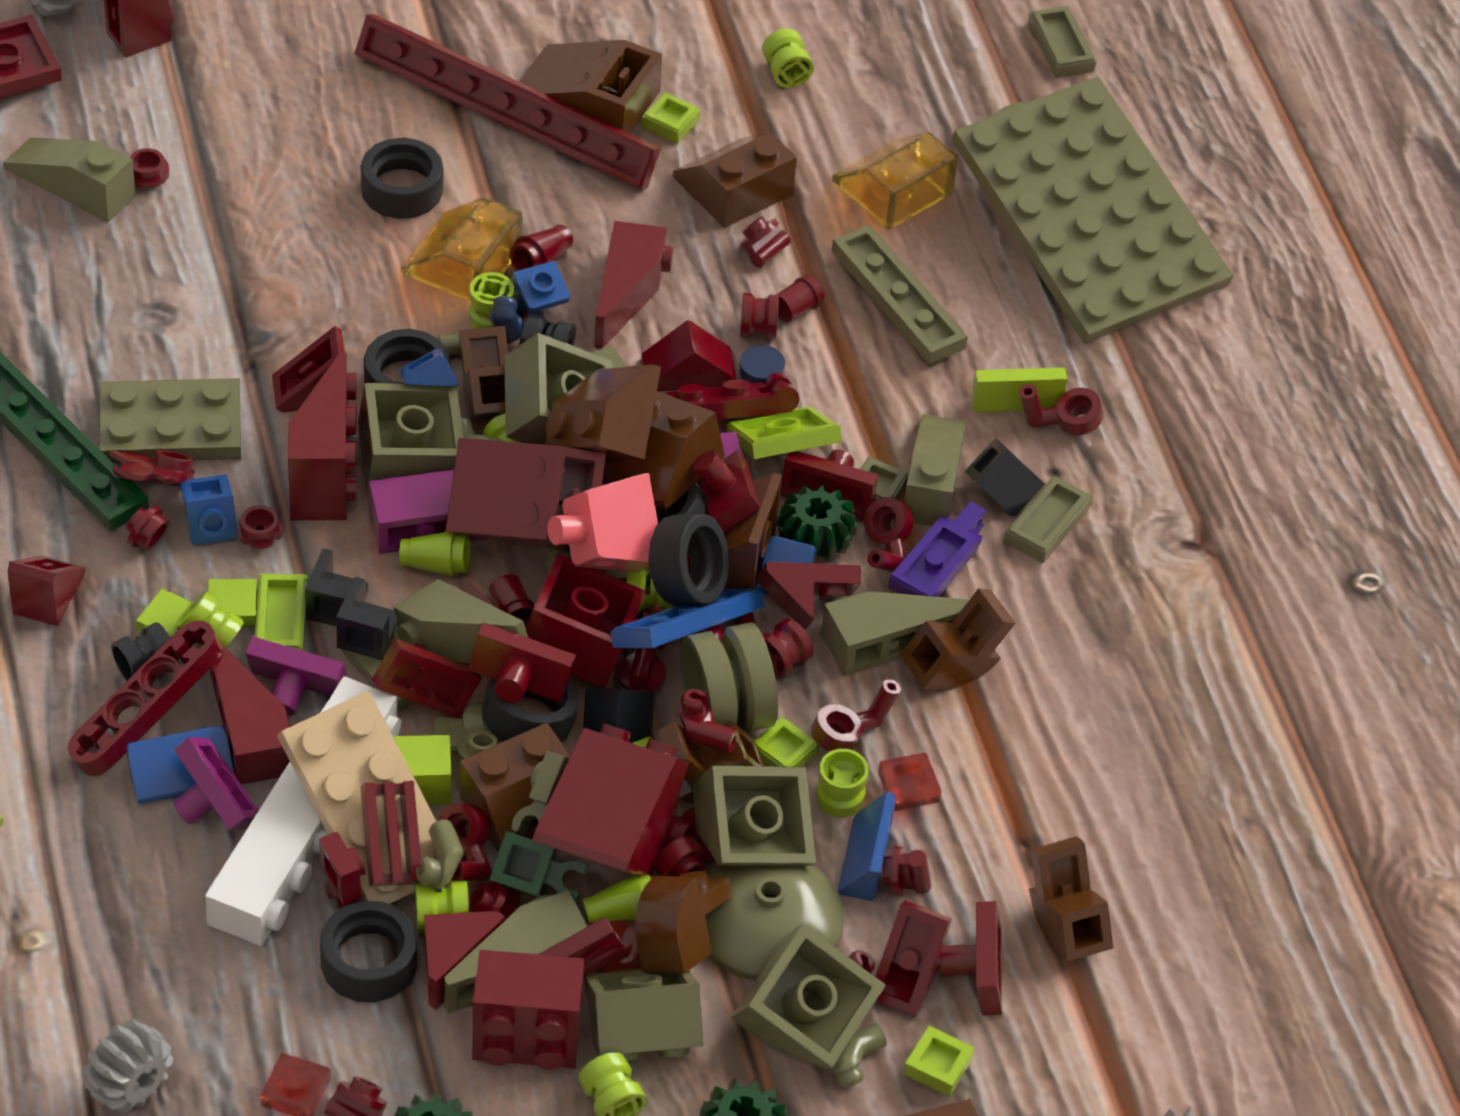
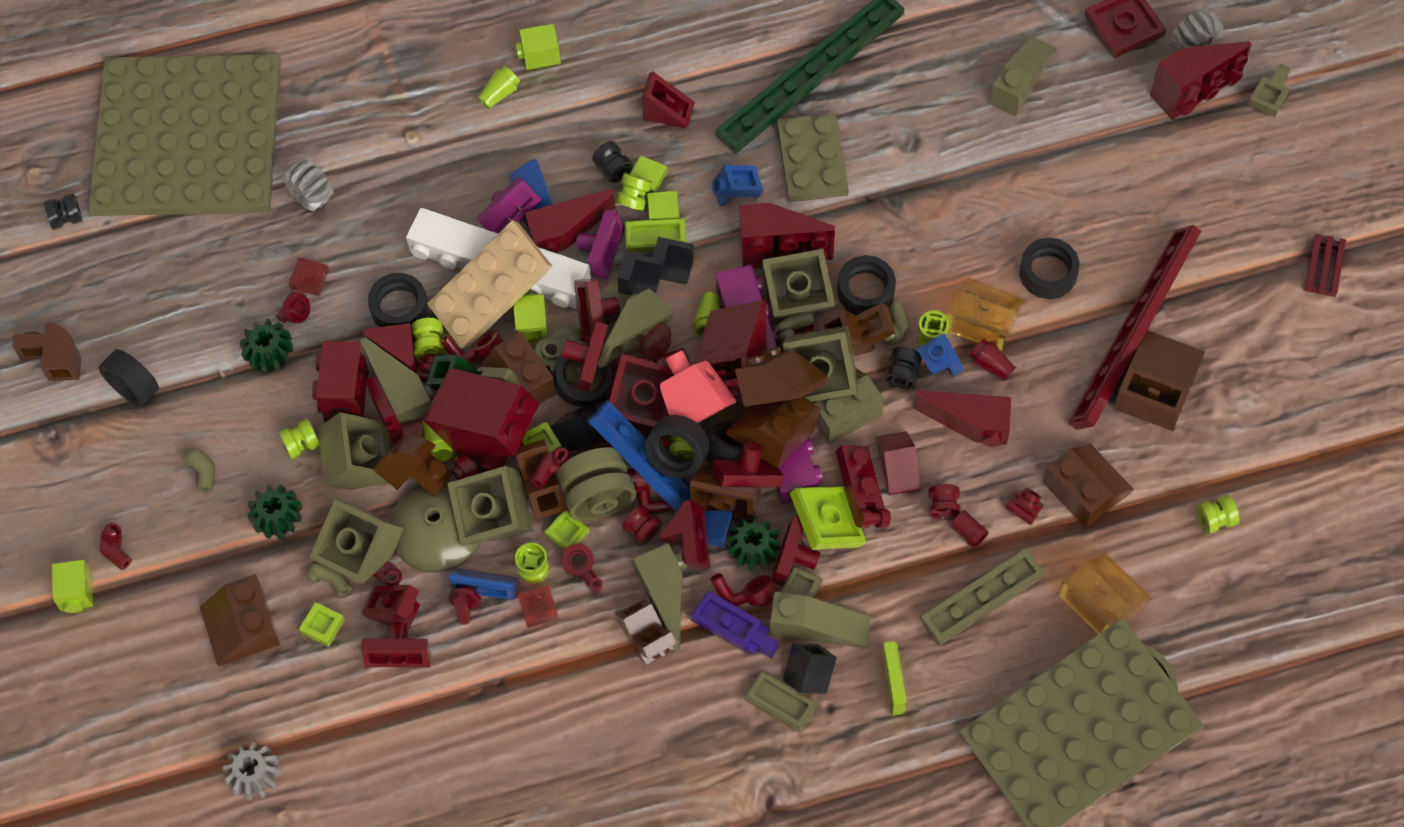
camera: 95 degrees right, 15 degrees up
(139, 693) = (597, 179): dark red beam -> none
(147, 527) = (714, 152): dark red plate -> none
(149, 168) = (1034, 117): dark red plate -> none
(166, 467) = (759, 147): dark red plate -> none
(259, 527) = (723, 208): dark red plate -> none
(303, 372) = (852, 234): dark red slope -> none
(342, 869) = (437, 274): dark red plate -> none
(410, 832) = (438, 294): dark red tile -> none
(429, 370) = (842, 289): blue slope -> none
(448, 854) = (450, 329): olive arm -> none
(505, 315) = (906, 335): dark blue arm -> none
(671, 117) = (1147, 440): lime tile -> none
(760, 362) = (903, 508): dark blue tile -> none
(1062, 41) = (1285, 721): olive tile -> none
(1065, 905) = (435, 702): reddish brown brick -> none
(1069, 406) = (878, 711): dark red plate -> none

